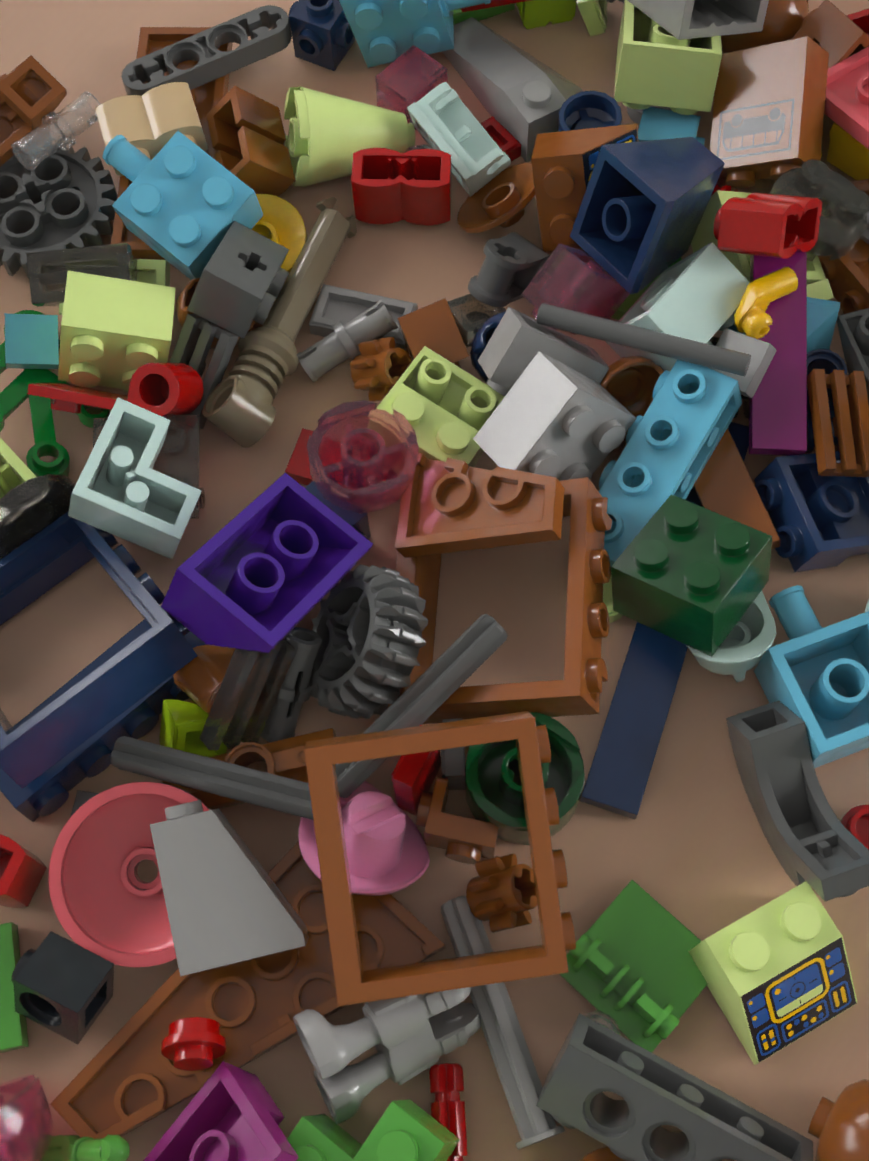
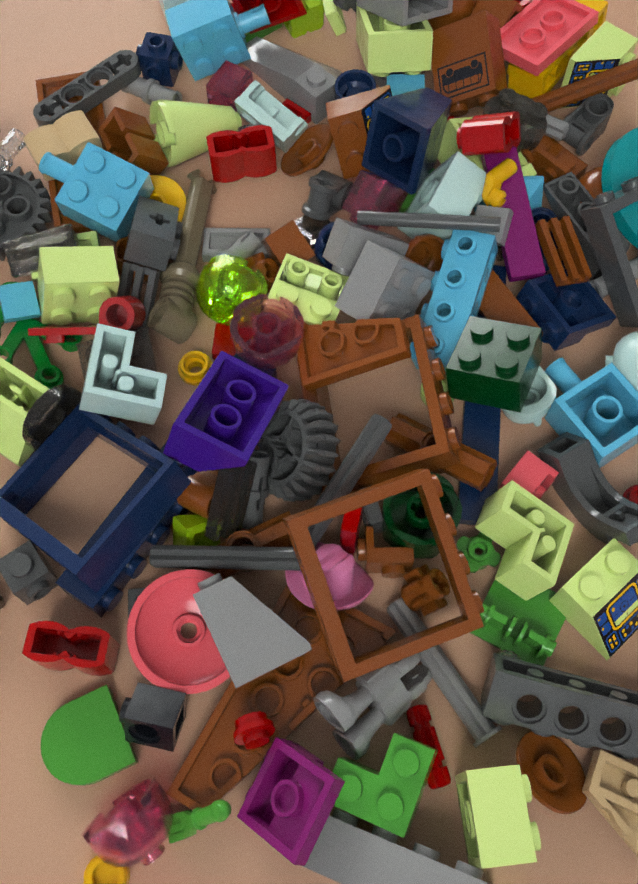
camera: 15 degrees left, 0 degrees up
(248, 477) = (191, 360): none -> yellow plate
(301, 71) = (151, 90): none -> light grey pin
(325, 374) = (225, 285): none -> clear neon green cylinder
(590, 866) = (475, 561): none -> bright green plate
(620, 722) = (474, 467): none -> dark orange piece
(682, 849) = (532, 538): none -> yellowish green brick
(695, 765) = (532, 475): none -> coral brick

